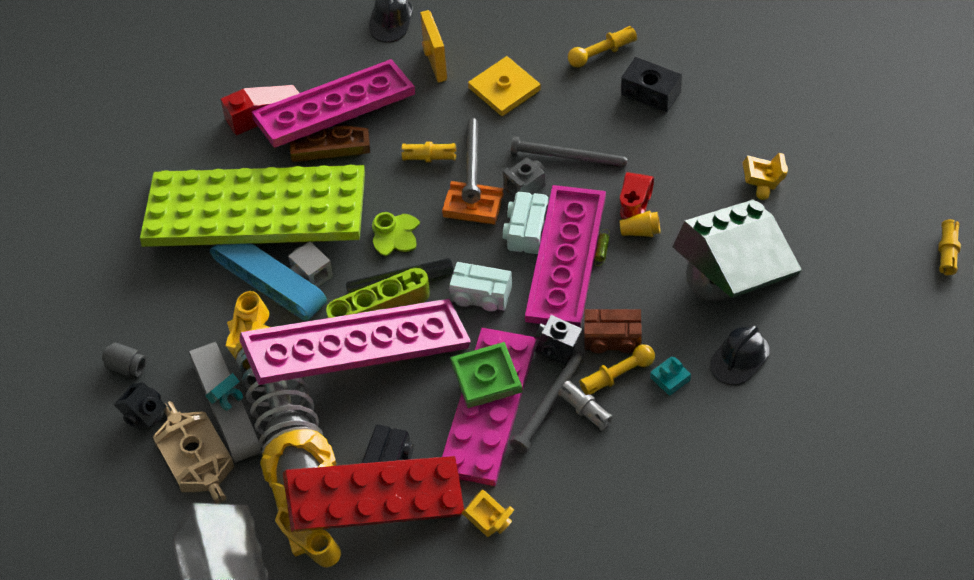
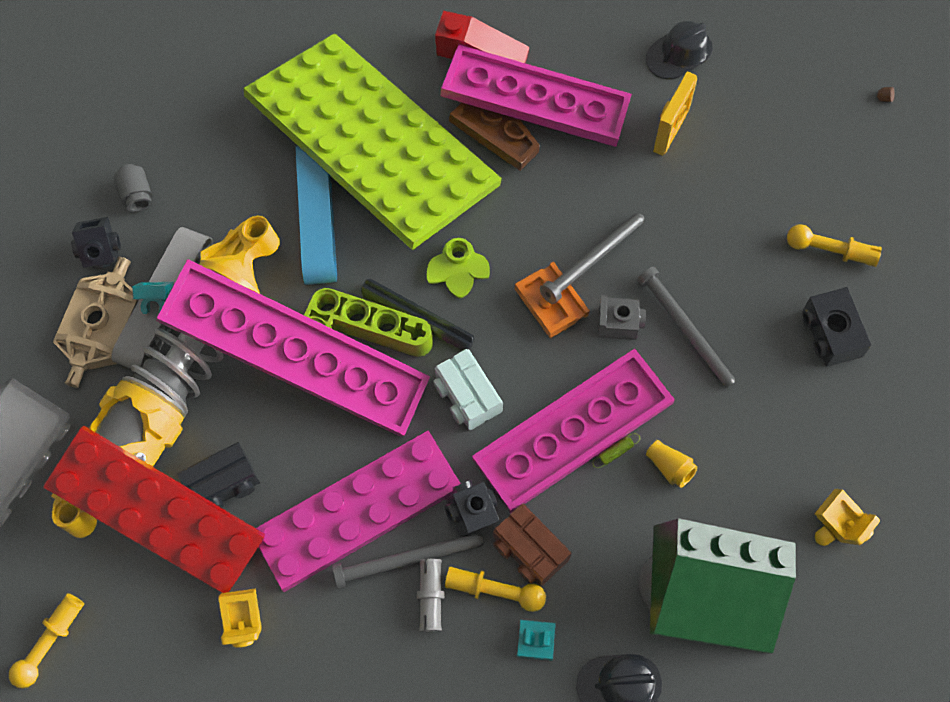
camera: 45 degrees right, 15 degrees up
(311, 264) = (355, 235): light grey brick -> none
(428, 151) = (568, 214): yellow pin -> none
(486, 375) = (375, 483): bright green tile -> none
(504, 86) = (704, 207): yellow plate -> none
(526, 222) = (573, 362): light aqua brick -> none
(635, 194) = (702, 426): red piece -> none

